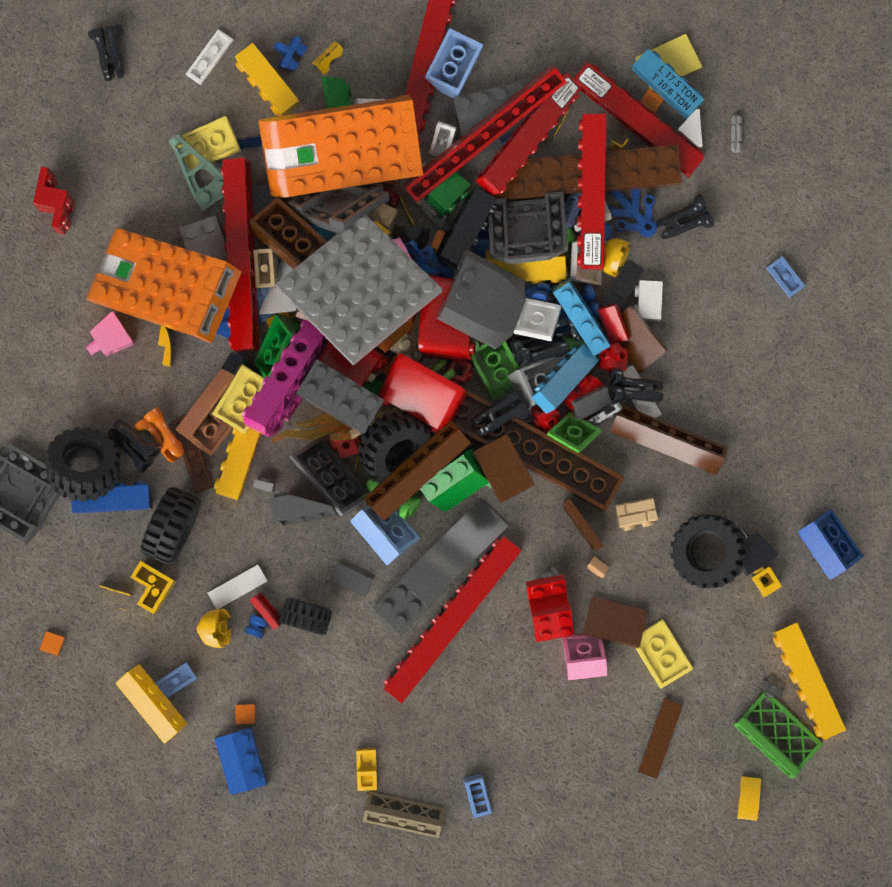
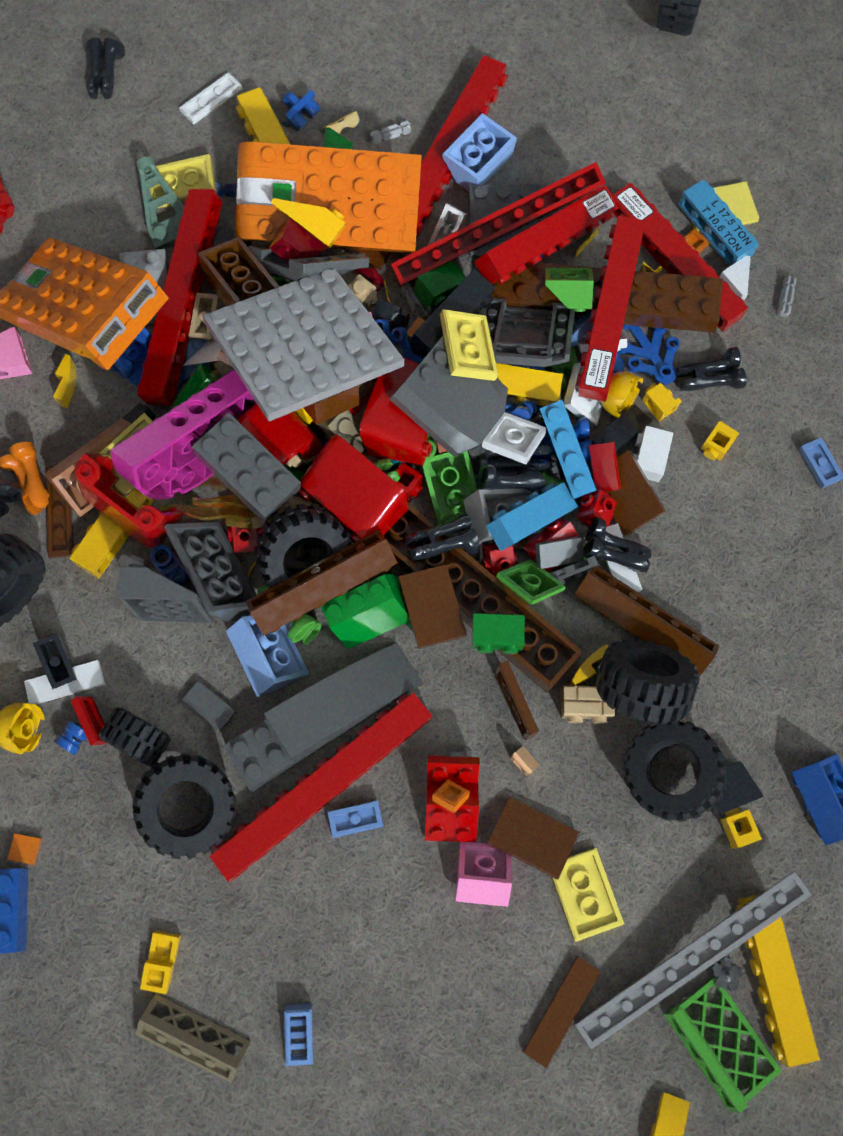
camera: 10 degrees right, 10 degrees down
(228, 572) = (55, 660): none -> black slope
(244, 446) = (96, 484): none -> red windscreen
(294, 481) = (172, 568): none -> blue piece
(326, 195) = (295, 242): none -> dark red slope
(339, 174) = (317, 220): none -> yellow slope
(372, 55) = (390, 132): none -> light grey axle
(379, 665) = (197, 838): none -> black tyre
(482, 638) = (355, 819): none -> medium blue plate
(487, 258) = (468, 345): none -> light yellow tile
(548, 607) = (450, 796): none -> orange tile
(555, 179) = (571, 286): none -> bright green slope
(557, 479) = (498, 633): none -> green brick
(630, 489) = (586, 670): none -> yellow slope
(647, 253) = (660, 401): none -> yellow brick
(676, 490) = (647, 681): none -> black tyre
(703, 272) = (724, 437): none -> yellow brick
(745, 682) = (692, 959): none -> light grey plate

